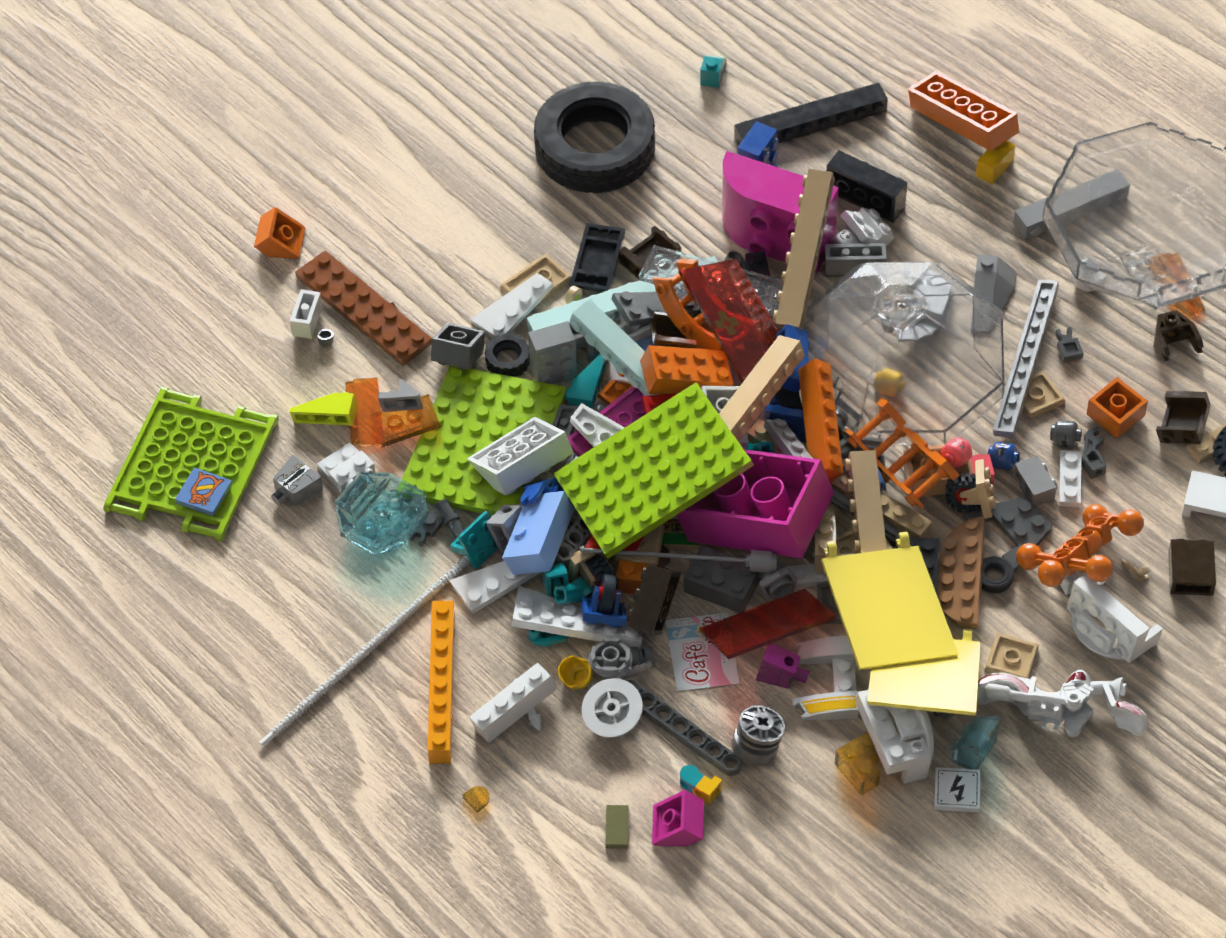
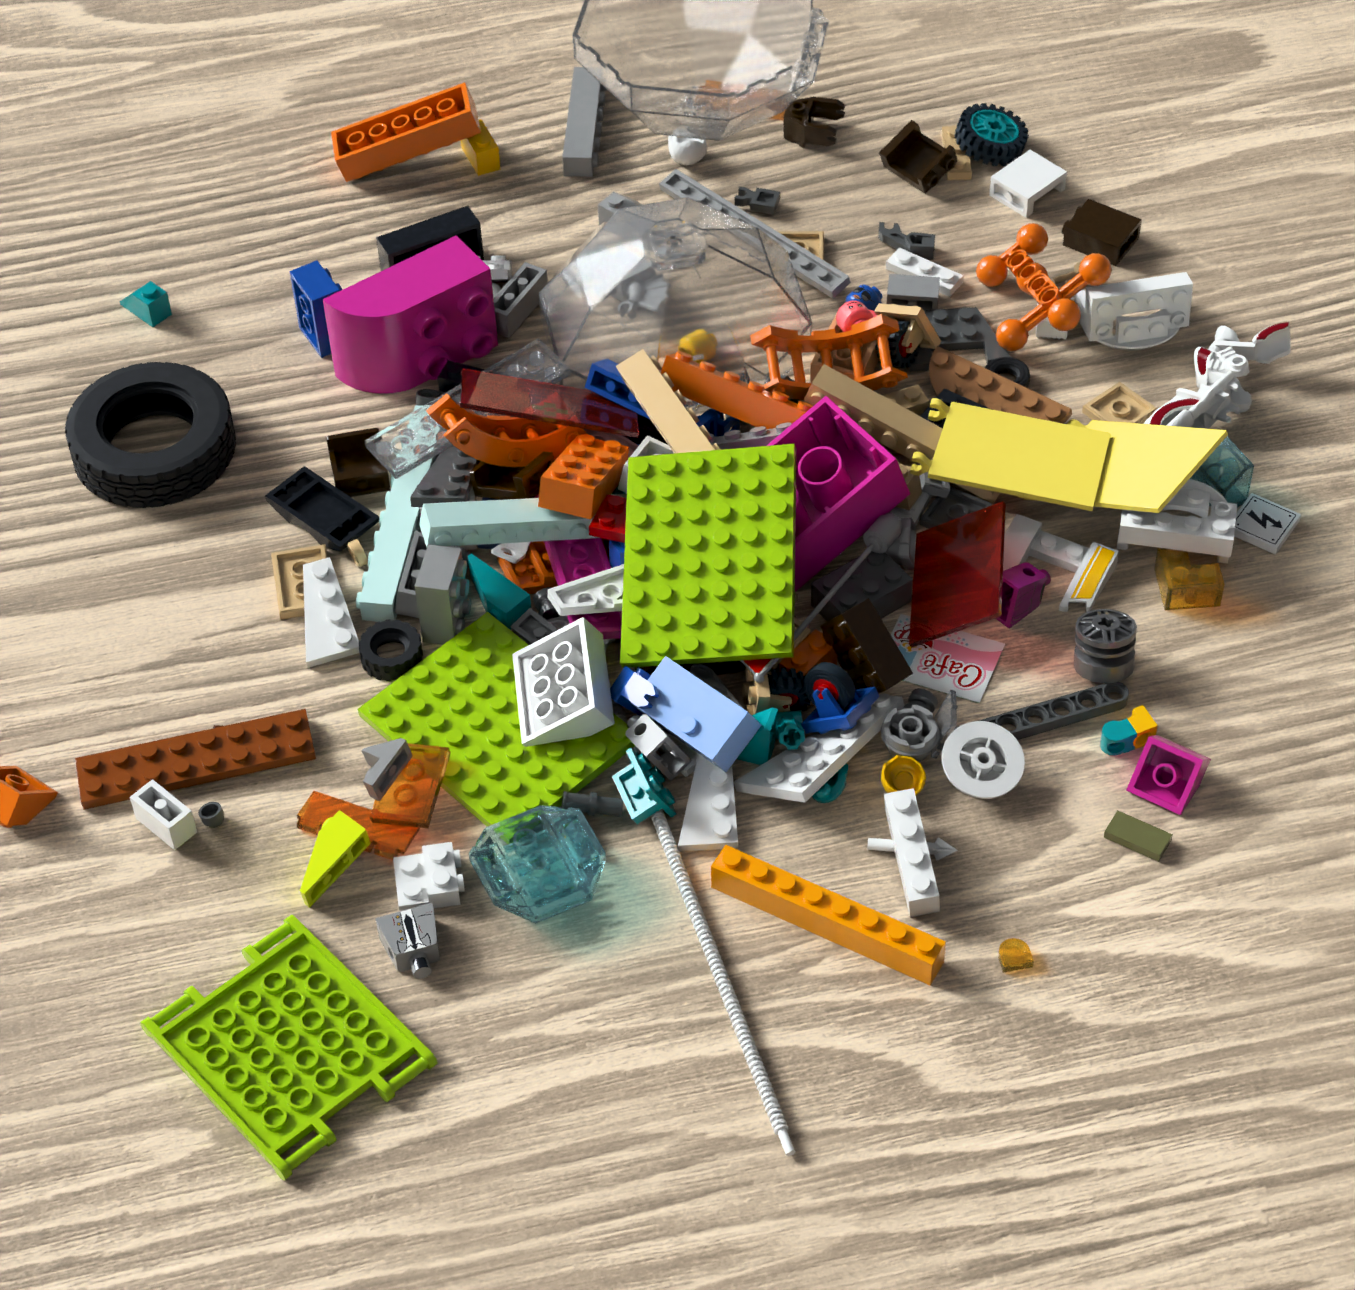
camera: 60 degrees left, 5 degrees down
(203, 491) = (354, 1043): medium blue tile -> none
(457, 346) = (346, 683): dark grey brick -> none
(805, 249) = (515, 298): tan brick -> none
(820, 114) = (292, 250): black brick -> none
(1065, 433) = (871, 247): dark grey head -> none
(1117, 407) = (870, 195): orange brick -> none

